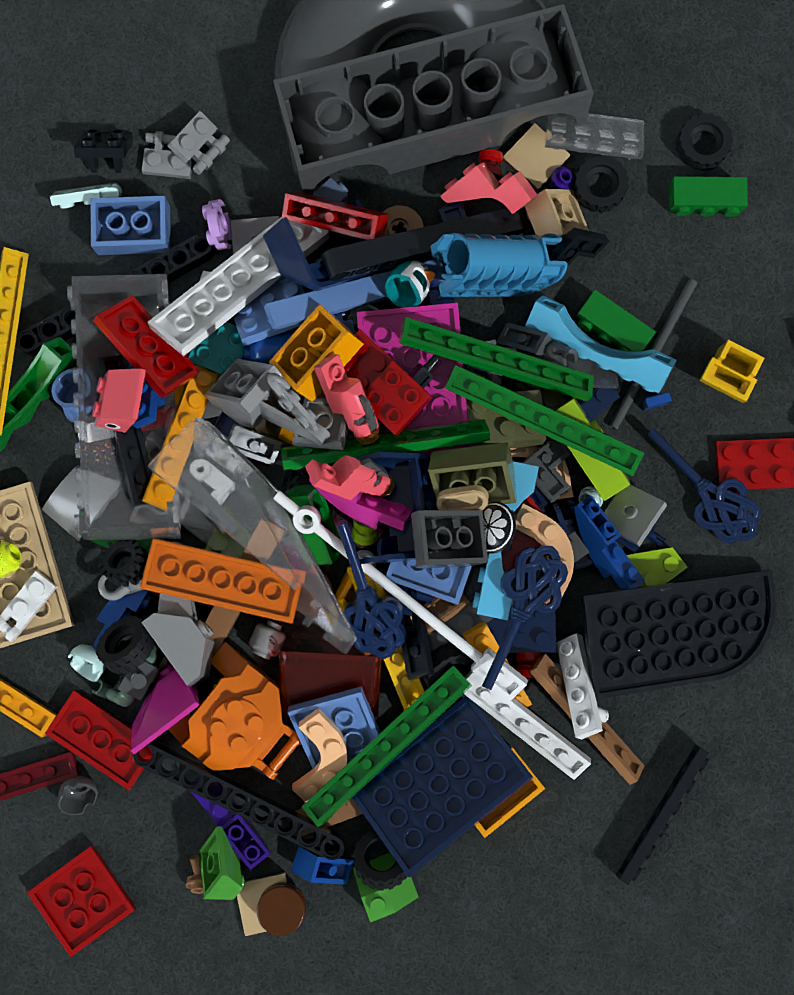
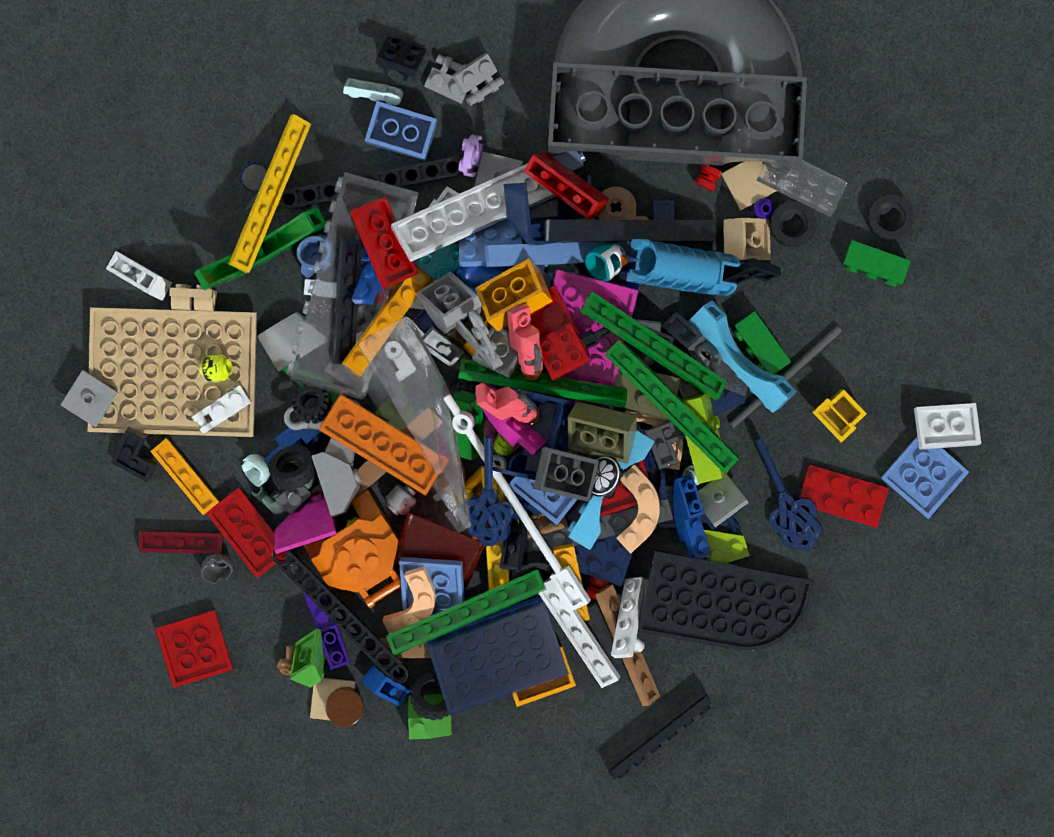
camera: 20 degrees right, 5 degrees up
(119, 399) = (350, 279): coral slope -> none
(463, 498) = (587, 447): tan tile -> none
(481, 183) = (693, 194): coral arch -> none
(520, 613) = (605, 533): dark blue piece -> none
(656, 401) = (772, 416): blue tile -> none

